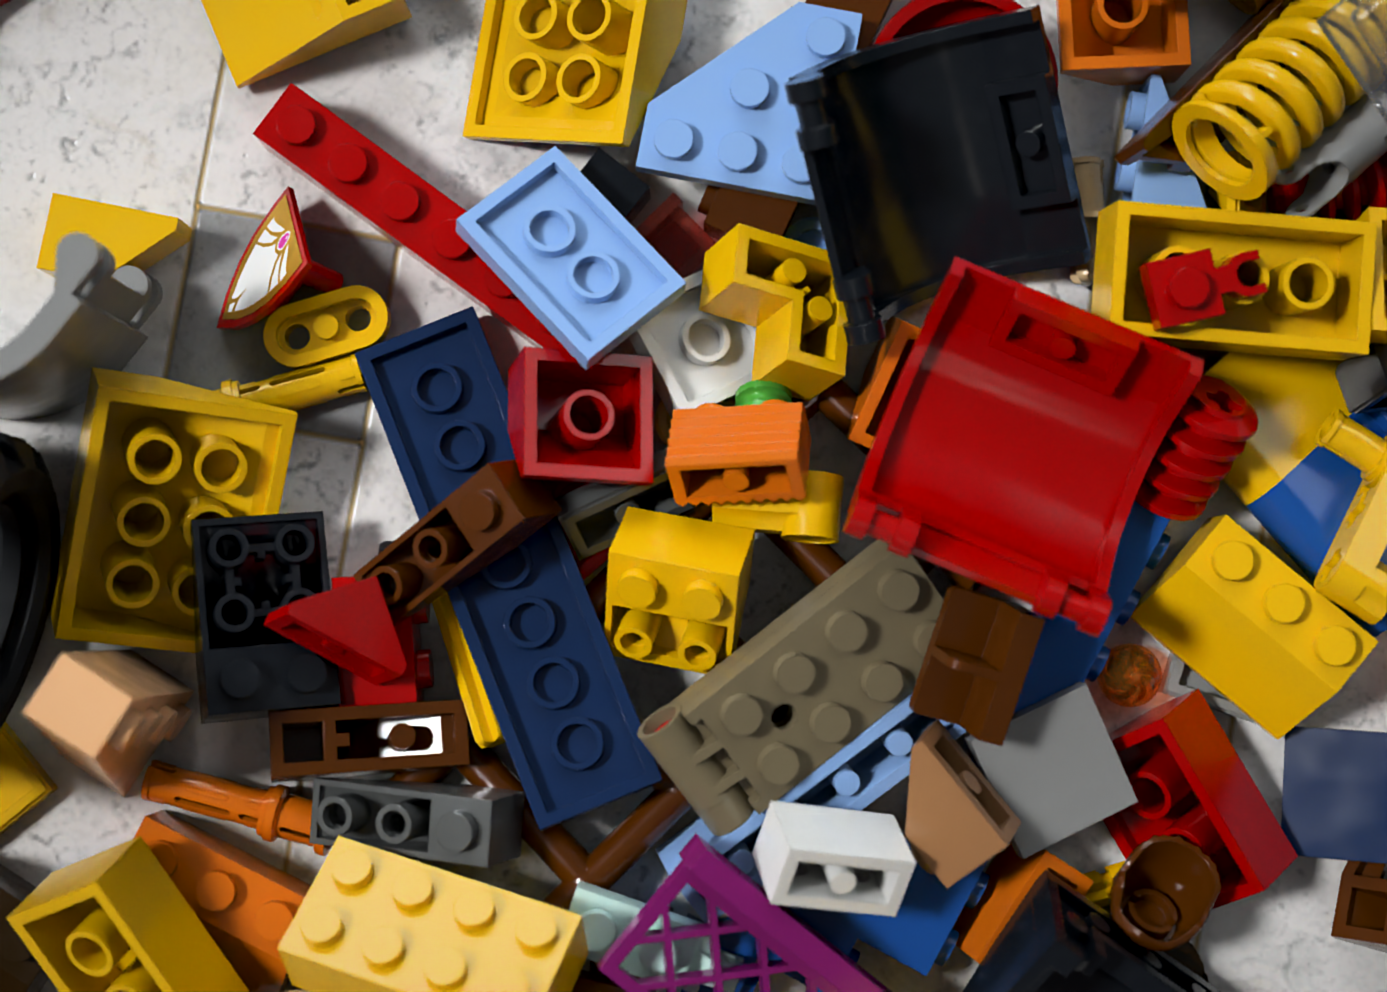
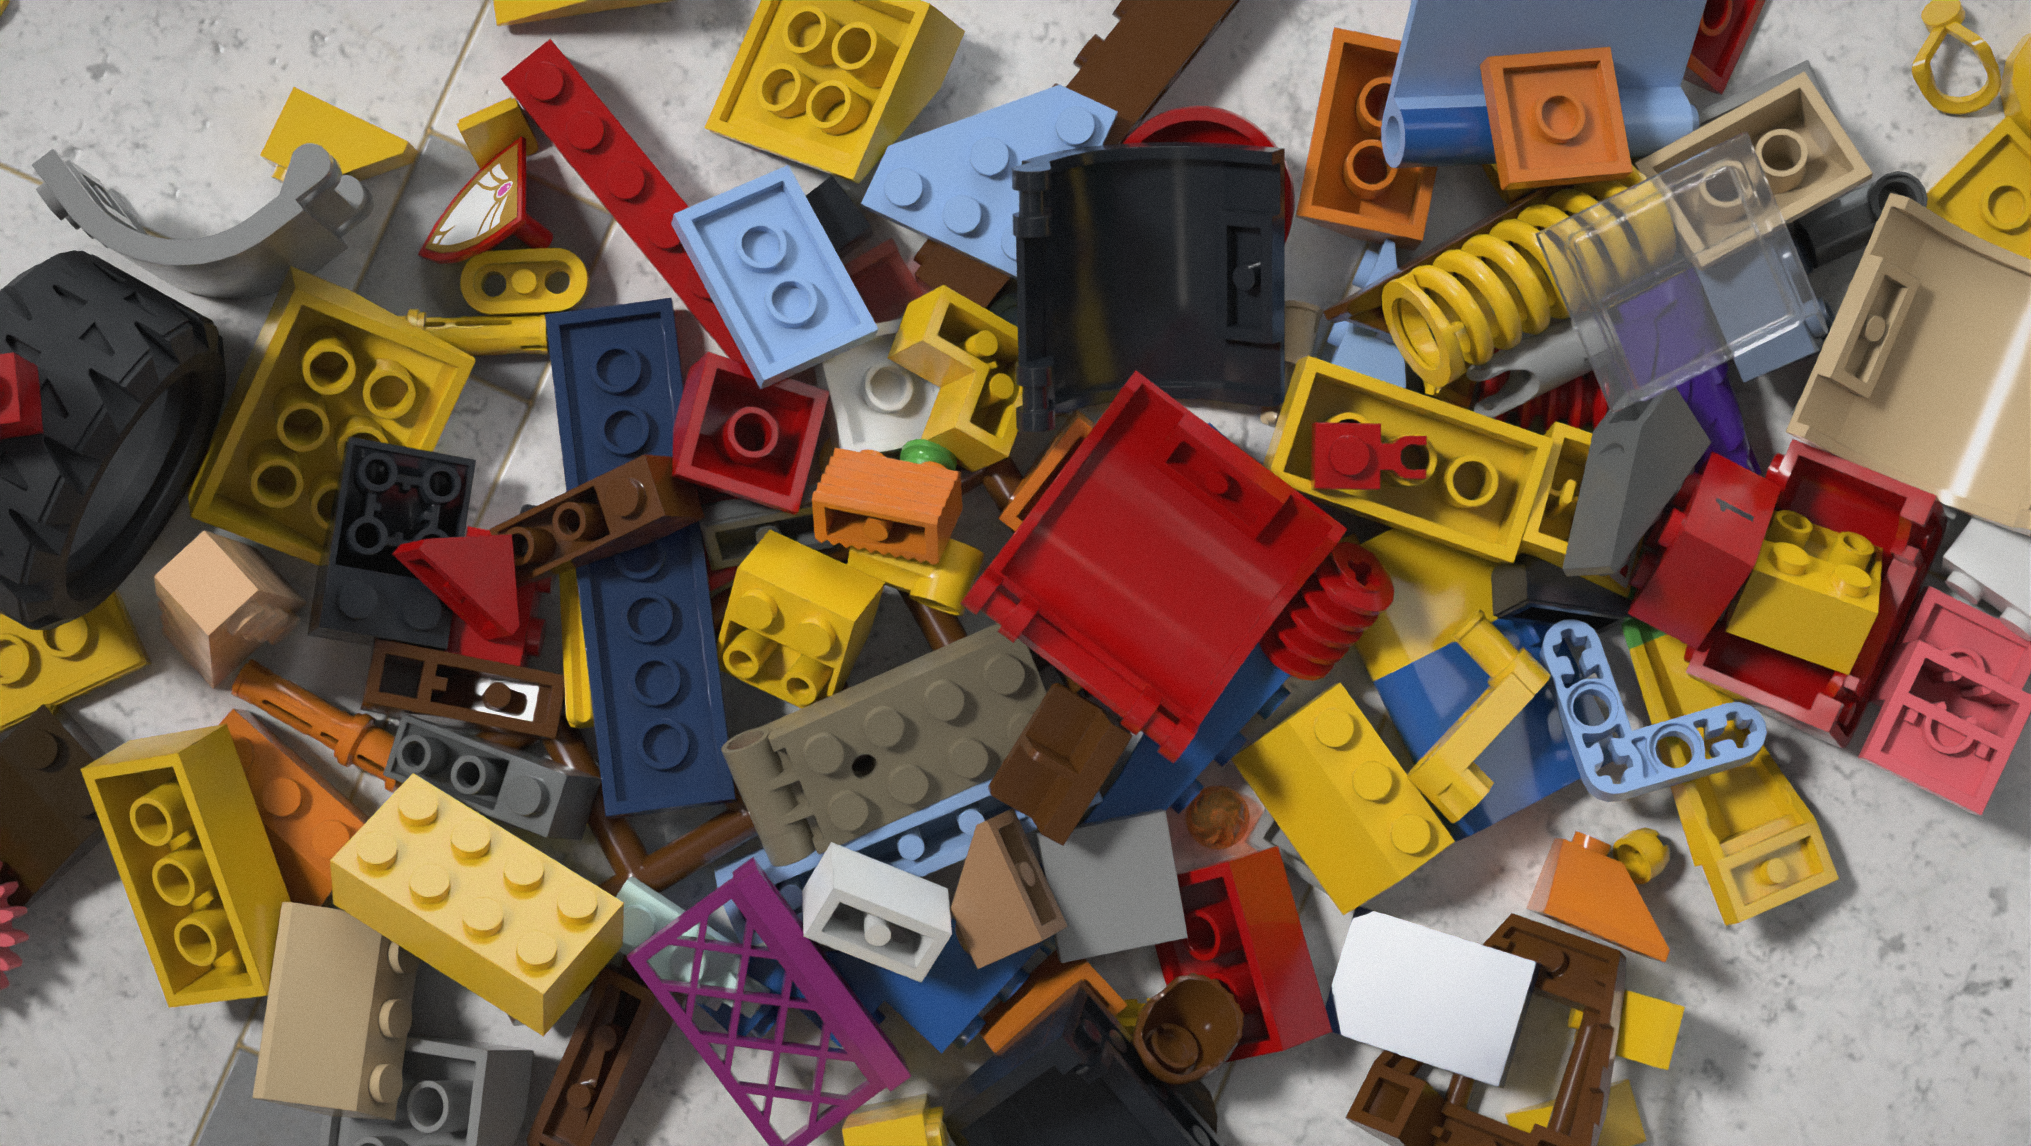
camera: 15 degrees right, 0 degrees up
(260, 186) = (496, 128): none -> yellow slope

